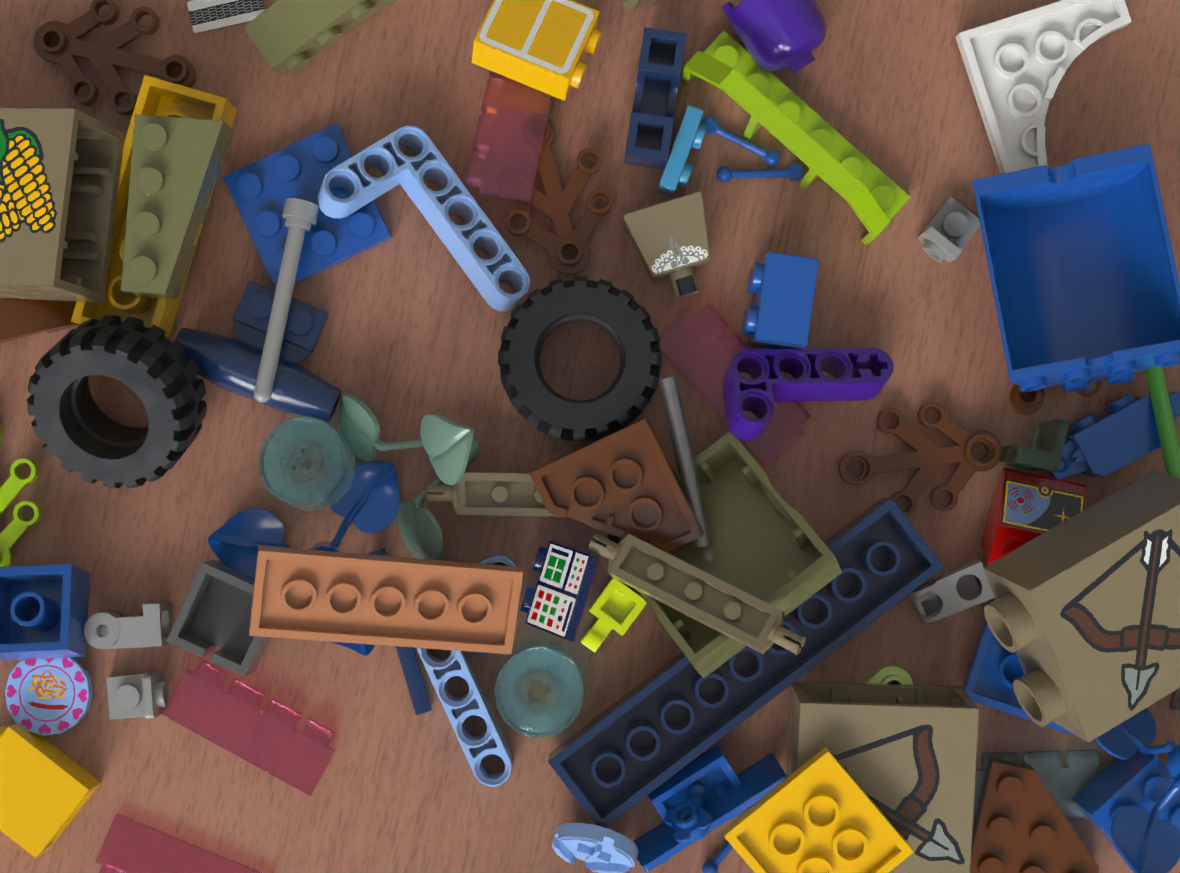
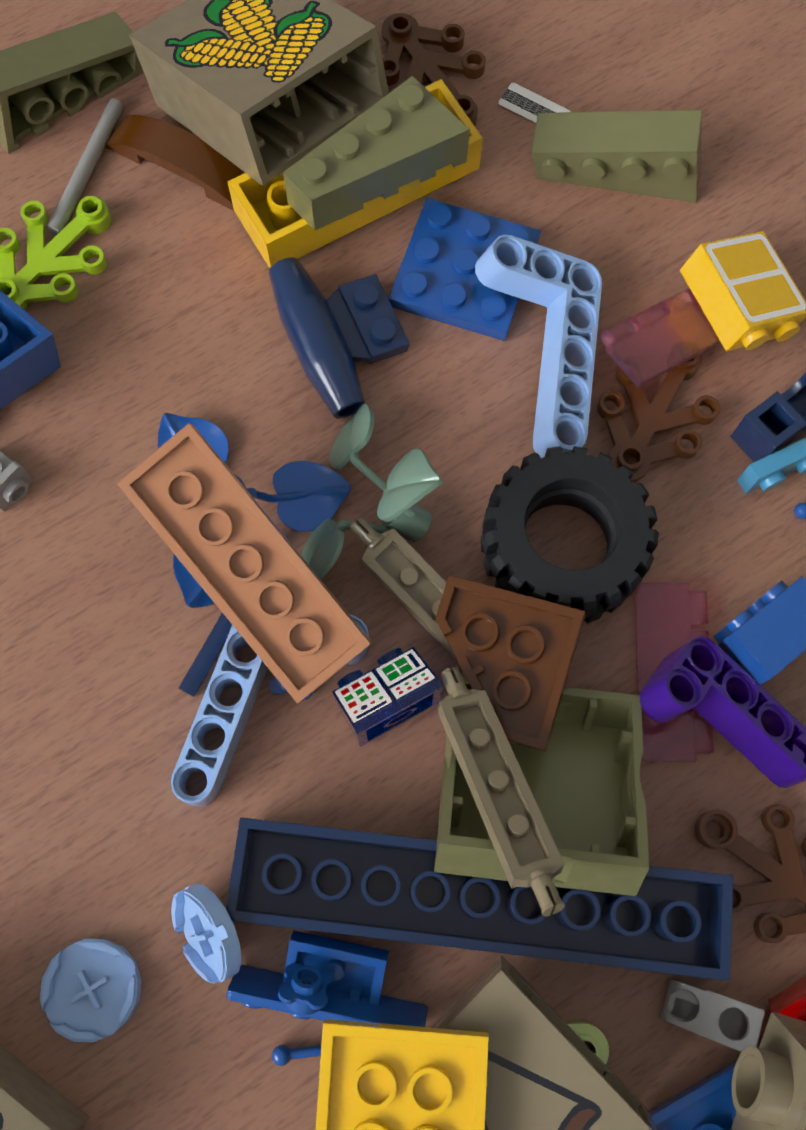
camera: 45 degrees right, 15 degrees down
(84, 434) = (158, 247): black tyre -> none
(117, 631) = (56, 437): light grey leg -> none
(219, 615) = (97, 465): dark grey piece -> none
(255, 735) = (45, 581): clear pink windscreen -> none
(287, 450) = (288, 427): clear light blue wheel -> none
(299, 218) = (454, 258): light grey piece -> none
(528, 713) = (281, 735): clear light blue wheel -> none
(615, 610) = (412, 754): neon yellow plate -> none
(671, 241) = (719, 517): dark tan torso -> none
(683, 453) = (585, 677): flat silver bar -> none

